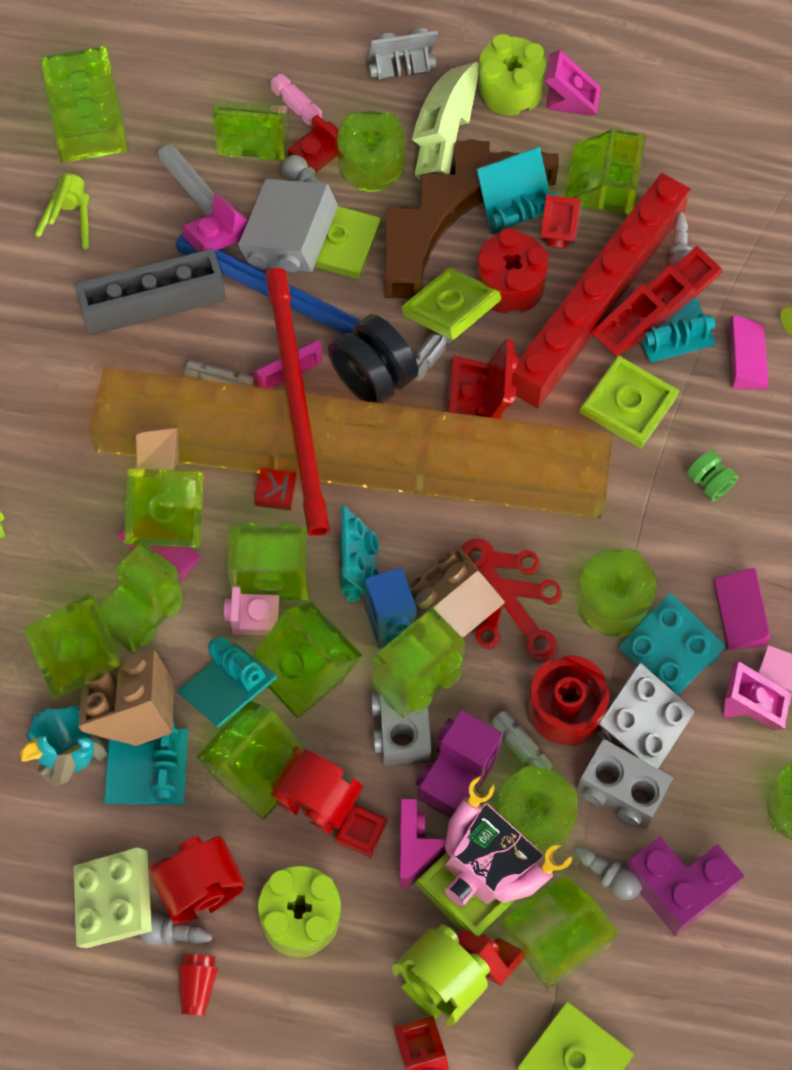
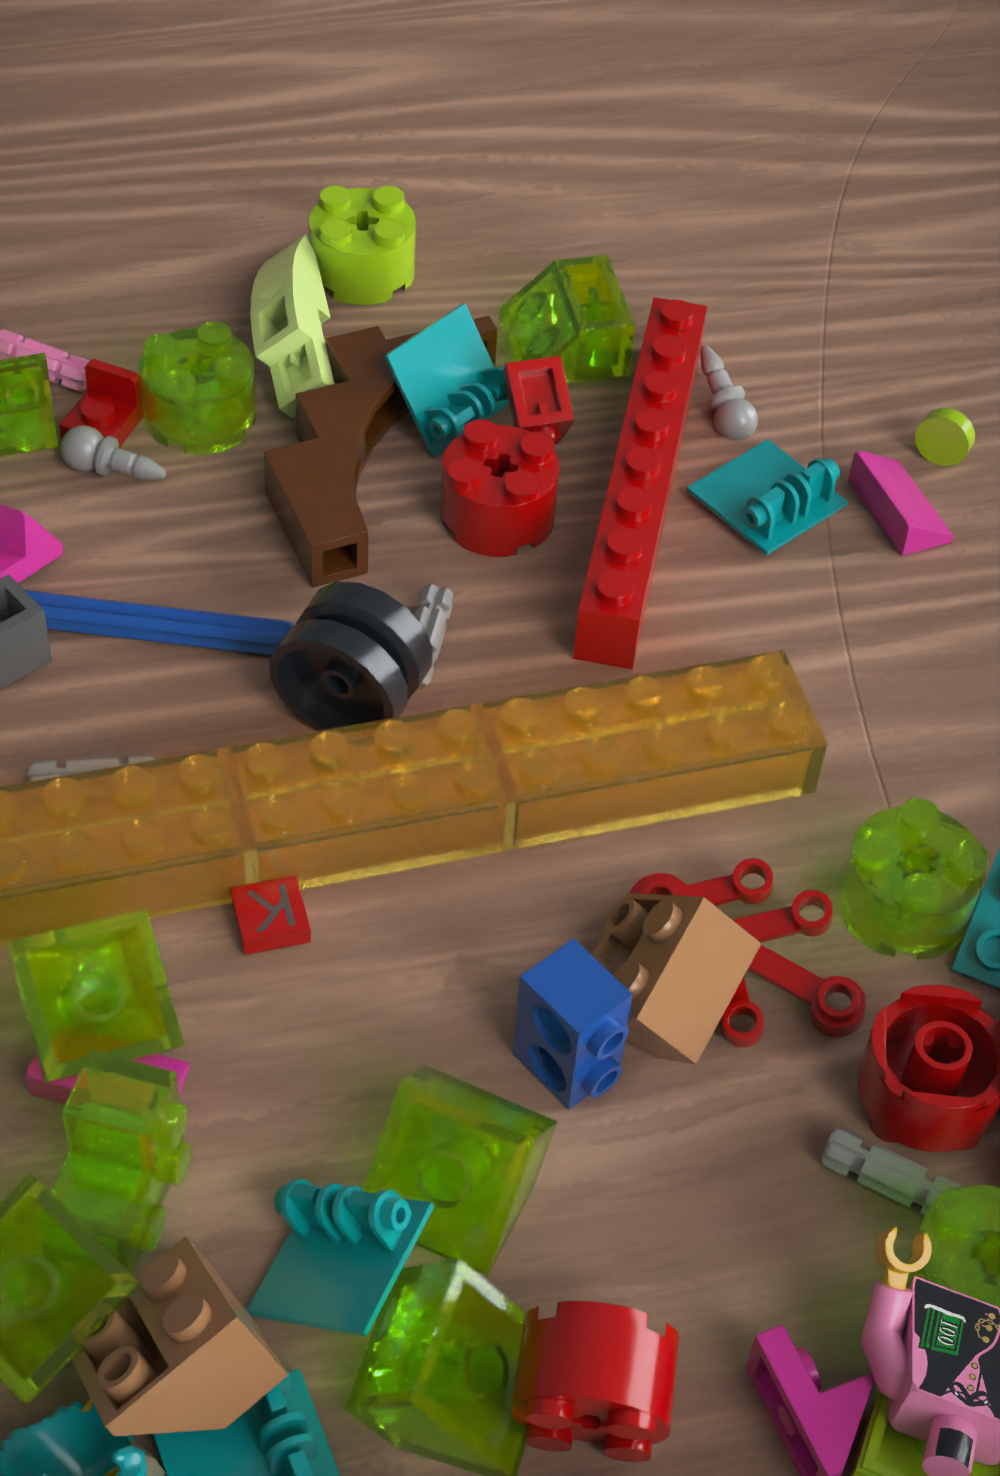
camera: 25 degrees left, 15 degrees down
(157, 447) = (44, 895): medium nougat slope -> none
(251, 612) = (325, 1126): bright pink bracket -> none
(269, 560) = (326, 1022): clear neon green brick -> none
(271, 373) = (209, 717): dark pink slope -> none
(288, 225) = (114, 519): light grey brick -> none
(313, 503) = (365, 891): red piece -> none
(348, 243) = (198, 527): lime plate -> none
(357, 554) = (464, 973): teal hinge -> none
(361, 831) = (703, 1432): red tile -> none
(388, 47) = (183, 254): light grey hinge -> none
(414, 726) = (695, 1202): light grey brick -> none
(418, 664) = (685, 1082): clear neon green brick -> none
(451, 303) = (431, 554): lime plate -> none
(465, 751) = (822, 1230): magenta brick -> none
(480, 386) = (552, 650): red bracket -> none
(570, 86) = (455, 241): dark pink slope -> none
(629, 401) = (769, 609): lime plate -> none
(657, 301) = (735, 466): red slope -> none
(712, 475) = (964, 678): bright green wheel -> none

